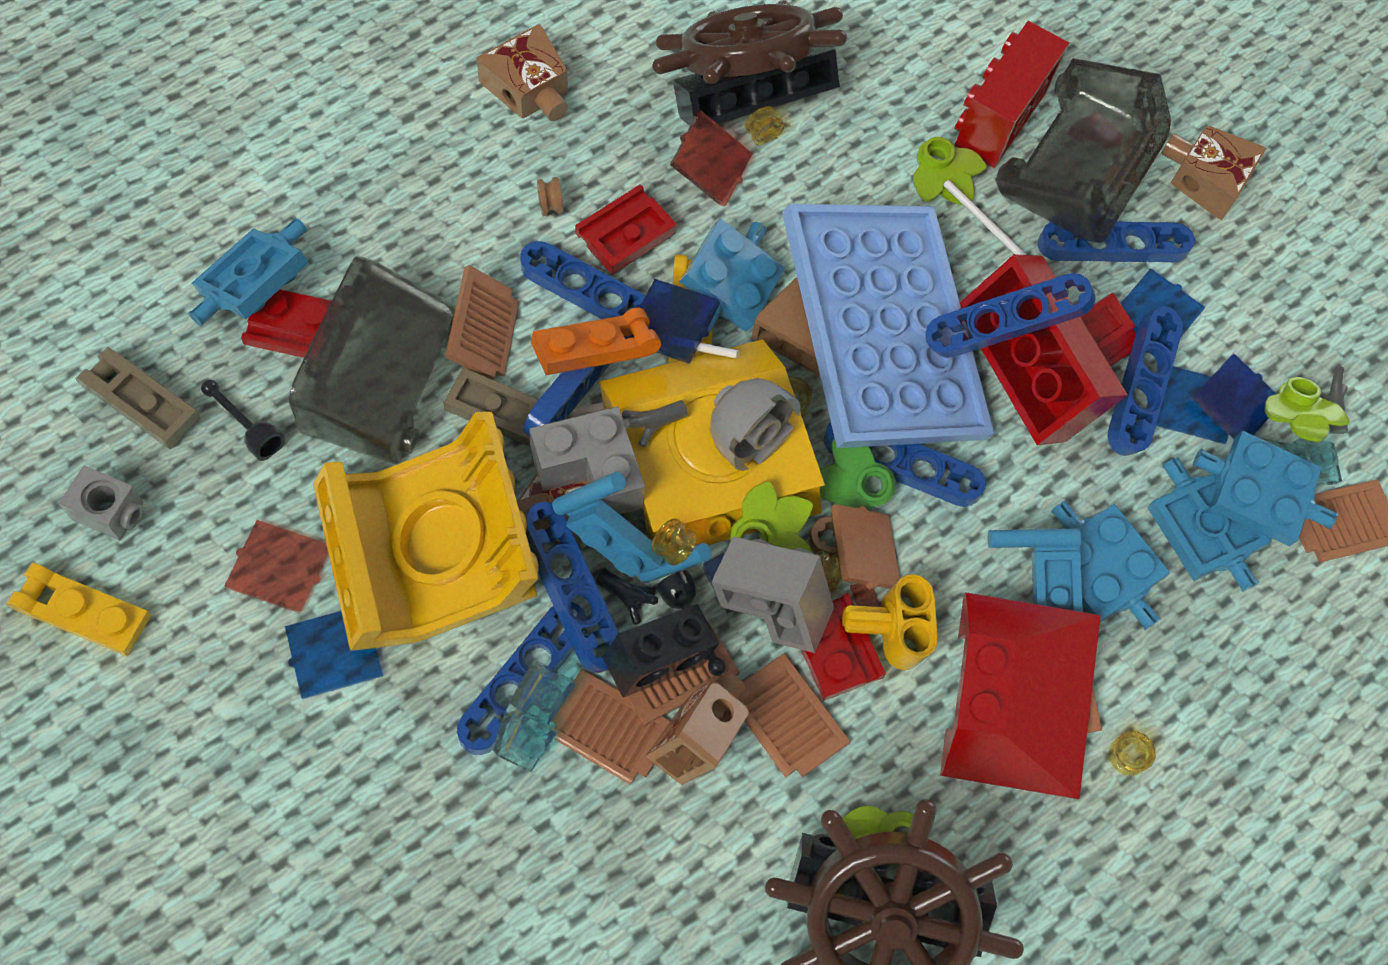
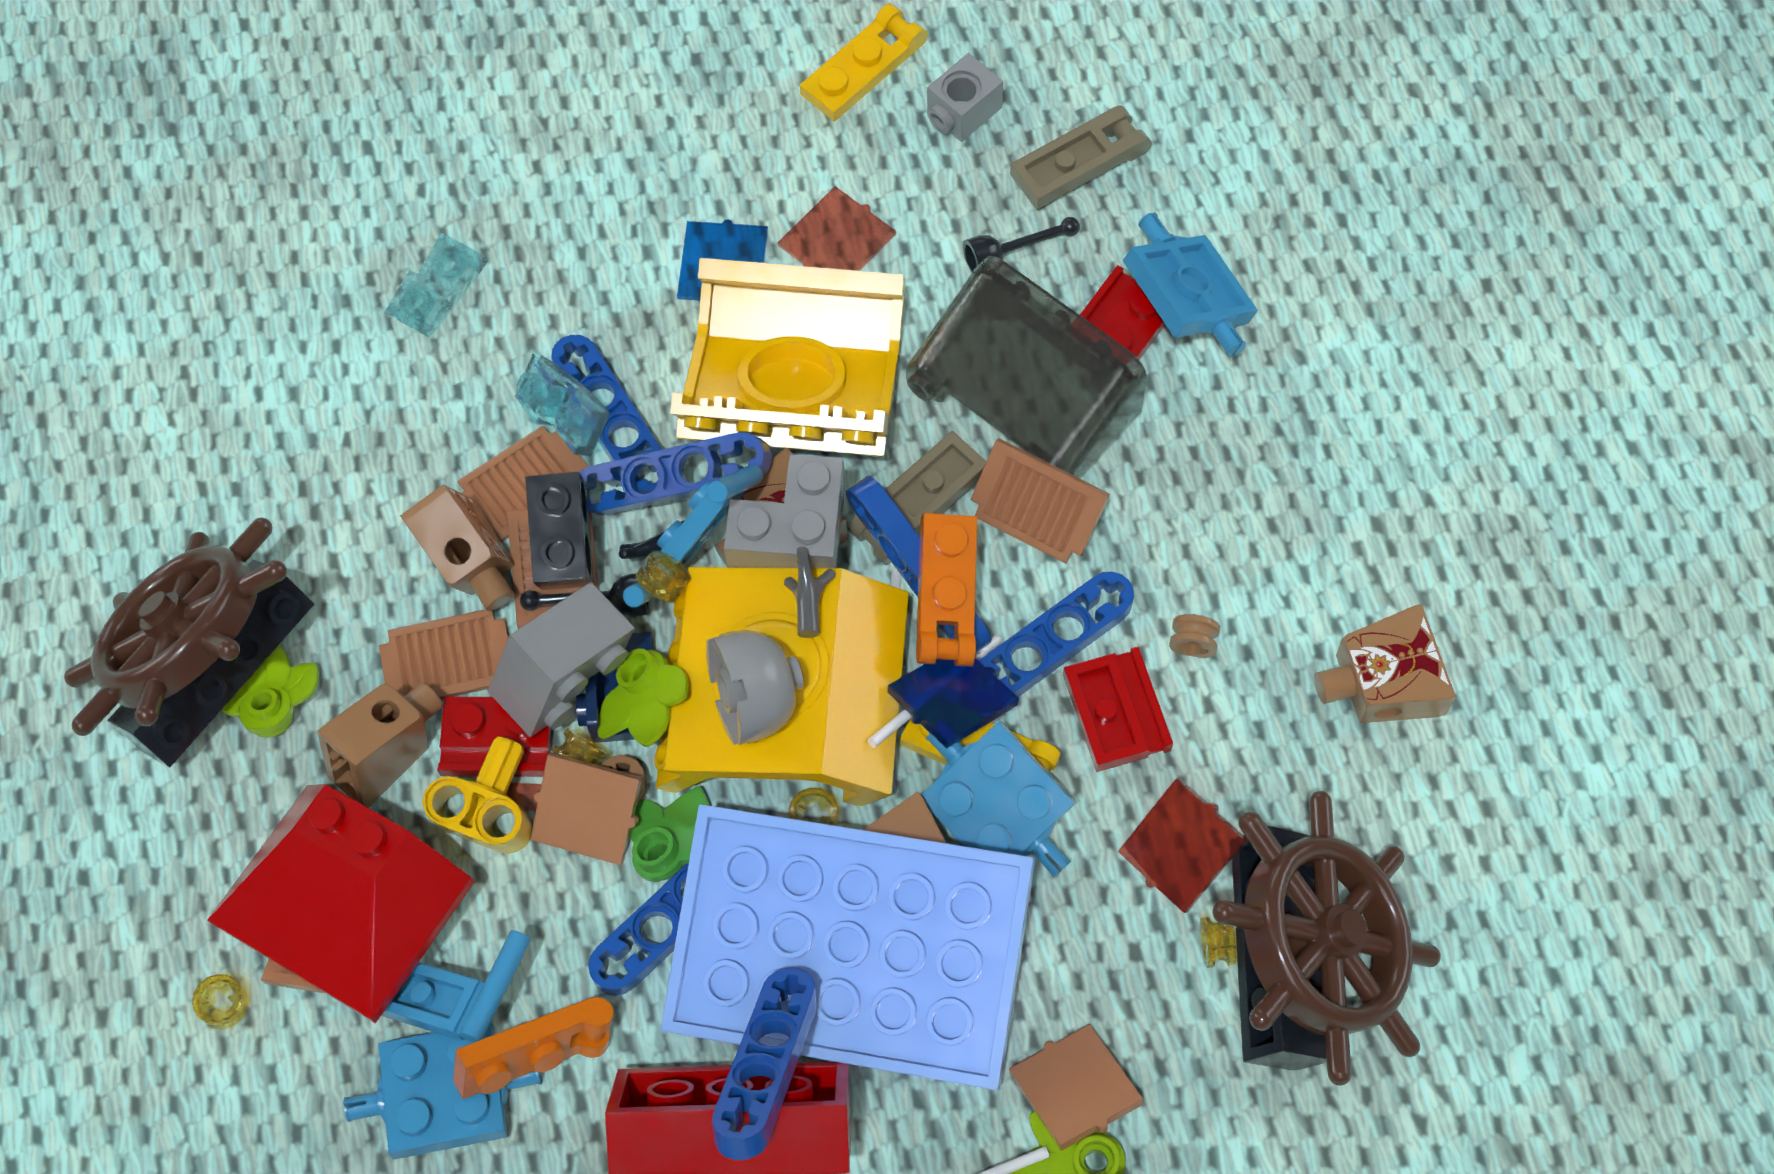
camera: 125 degrees right, 0 degrees up
(445, 893) = (432, 293): none -> clear light blue slope
(898, 175) = (1075, 1087): none -> nougat piece
(905, 723) = (377, 740): none -> medium nougat torso
(1058, 499) = (533, 1047): none -> orange plate

